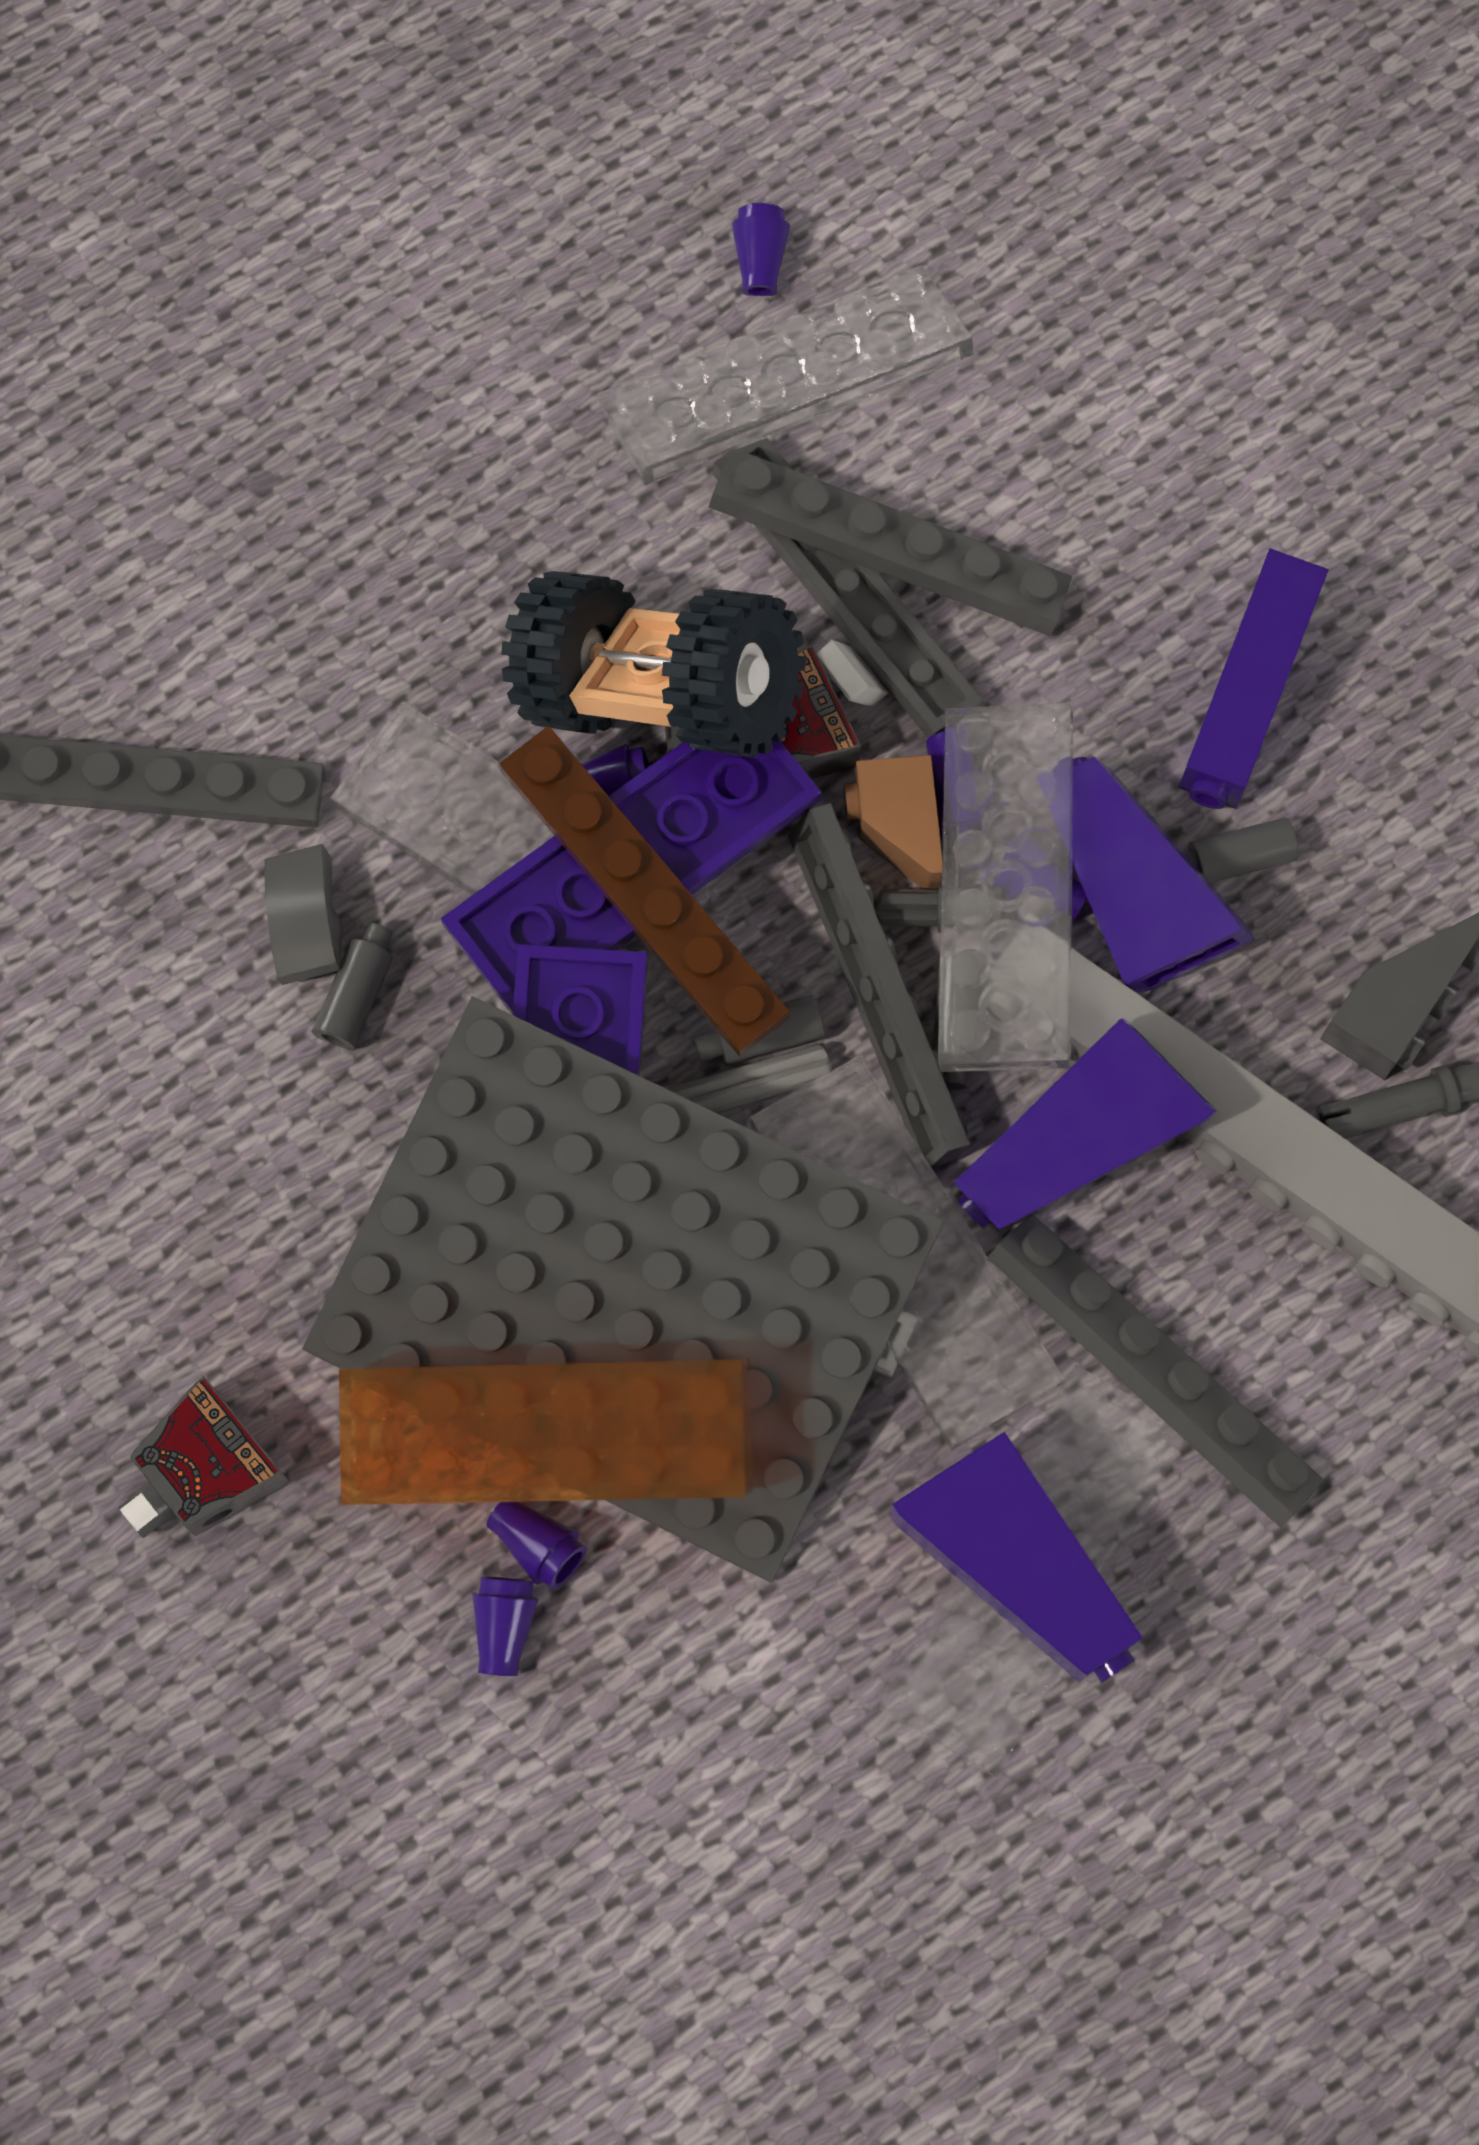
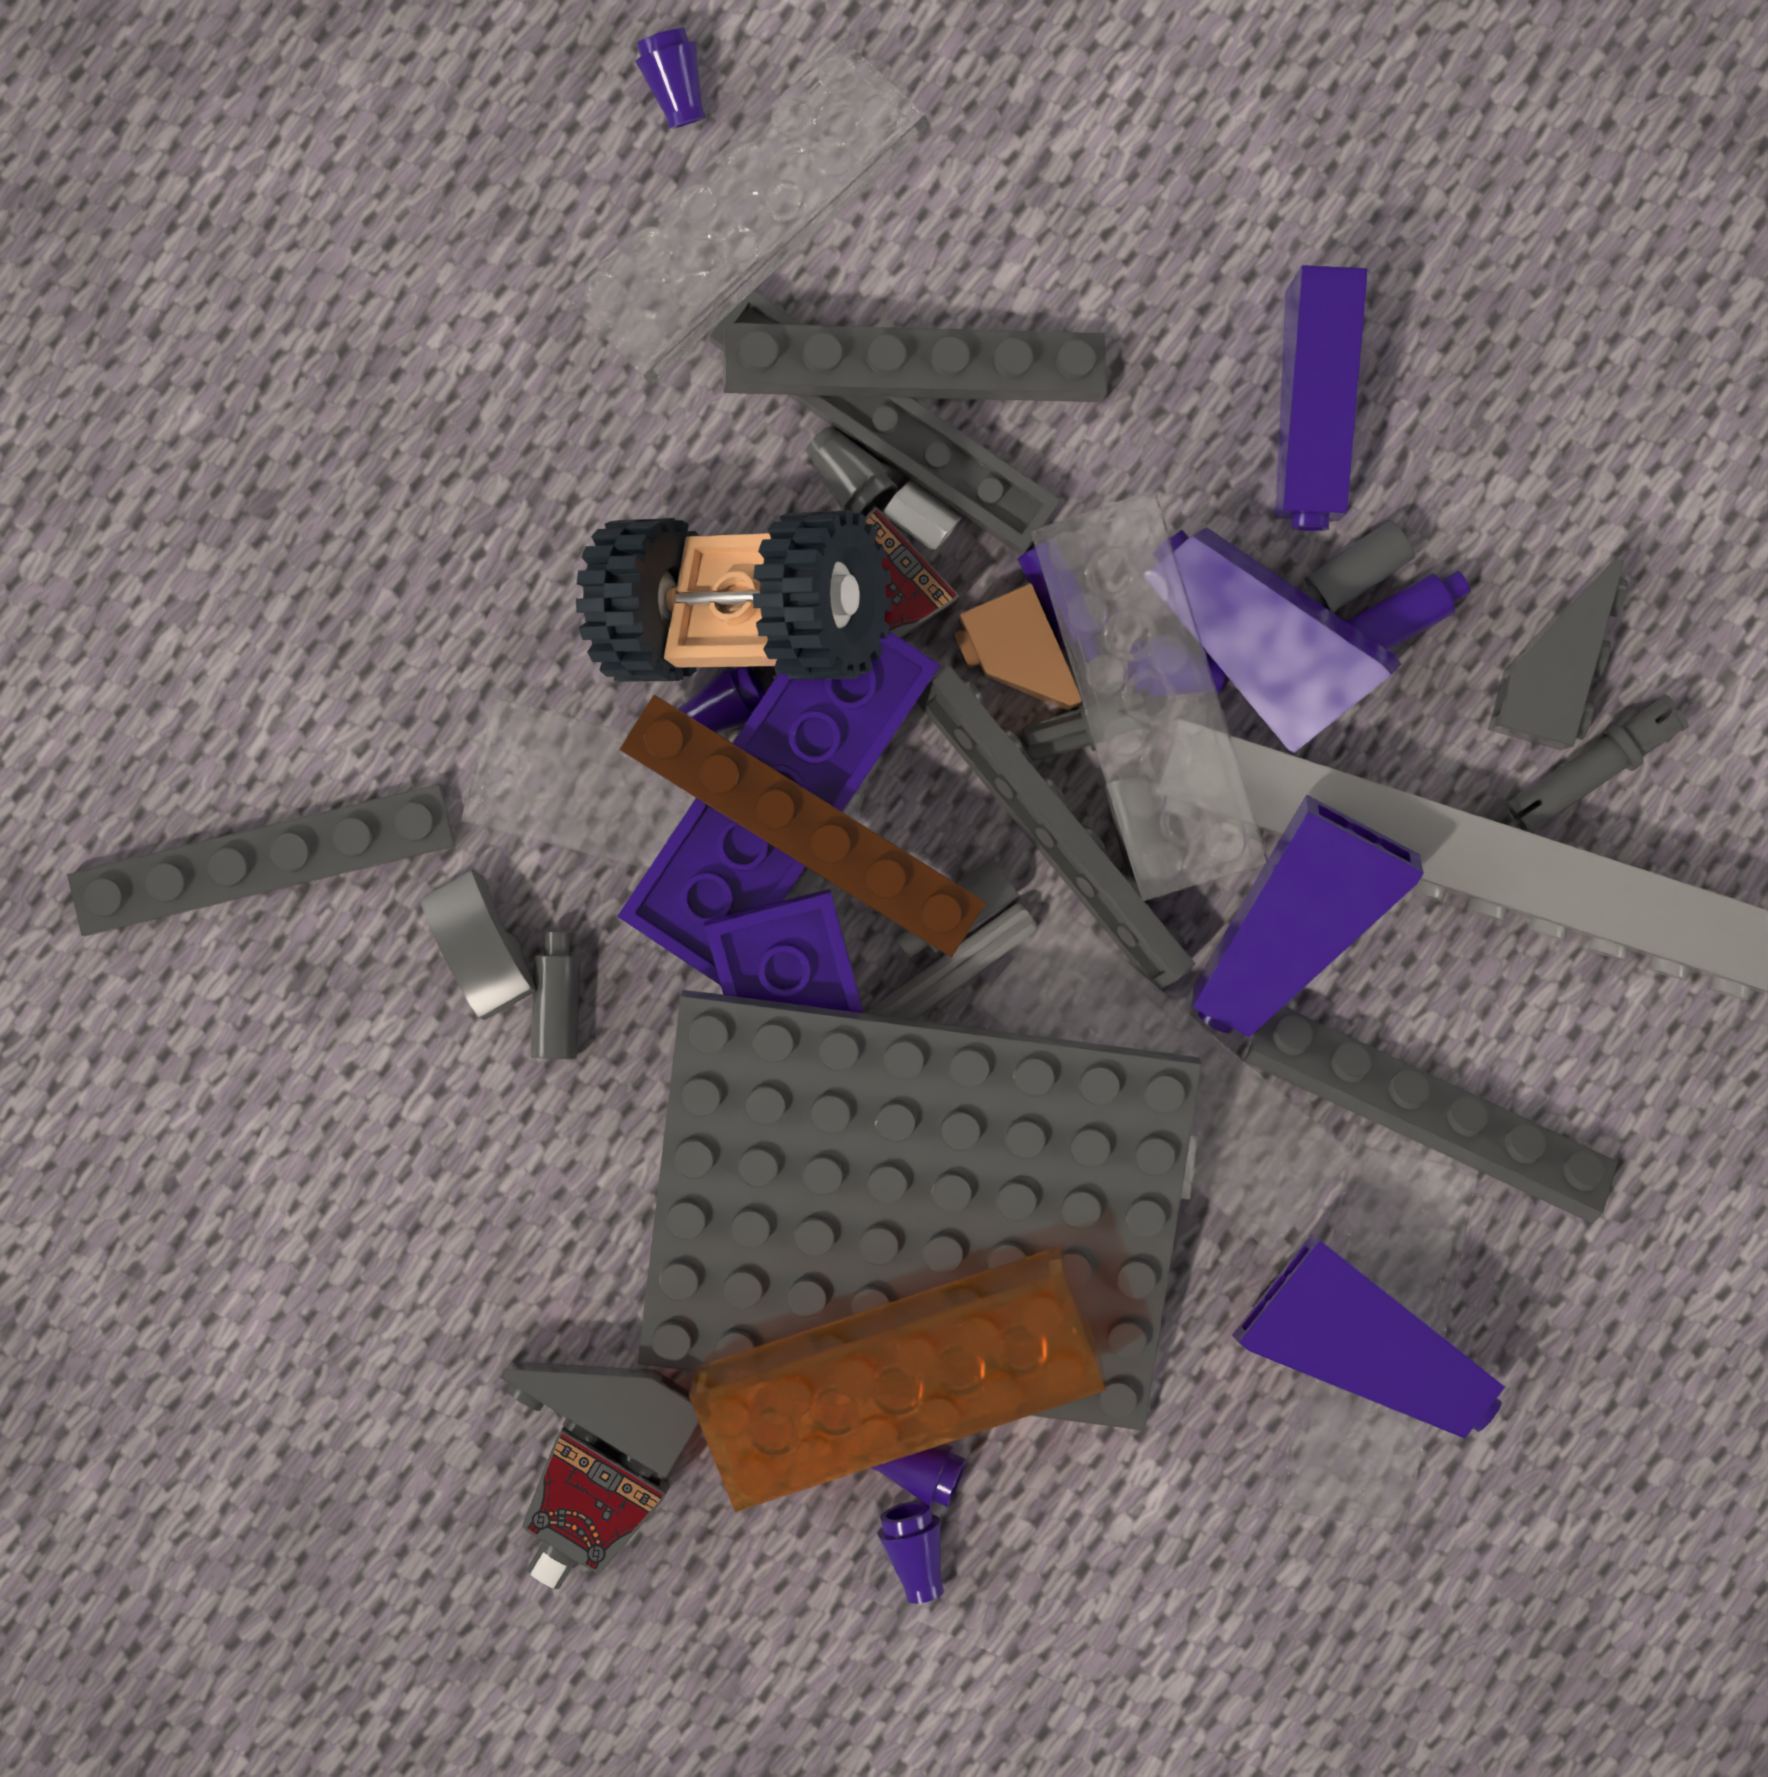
camera: 20 degrees left, 15 degrees up
(276, 1382) = (626, 1407): none -> dark grey slope
(810, 615) = (850, 472): none -> dark grey cone
(1282, 903) = (1411, 609): none -> dark purple cylinder

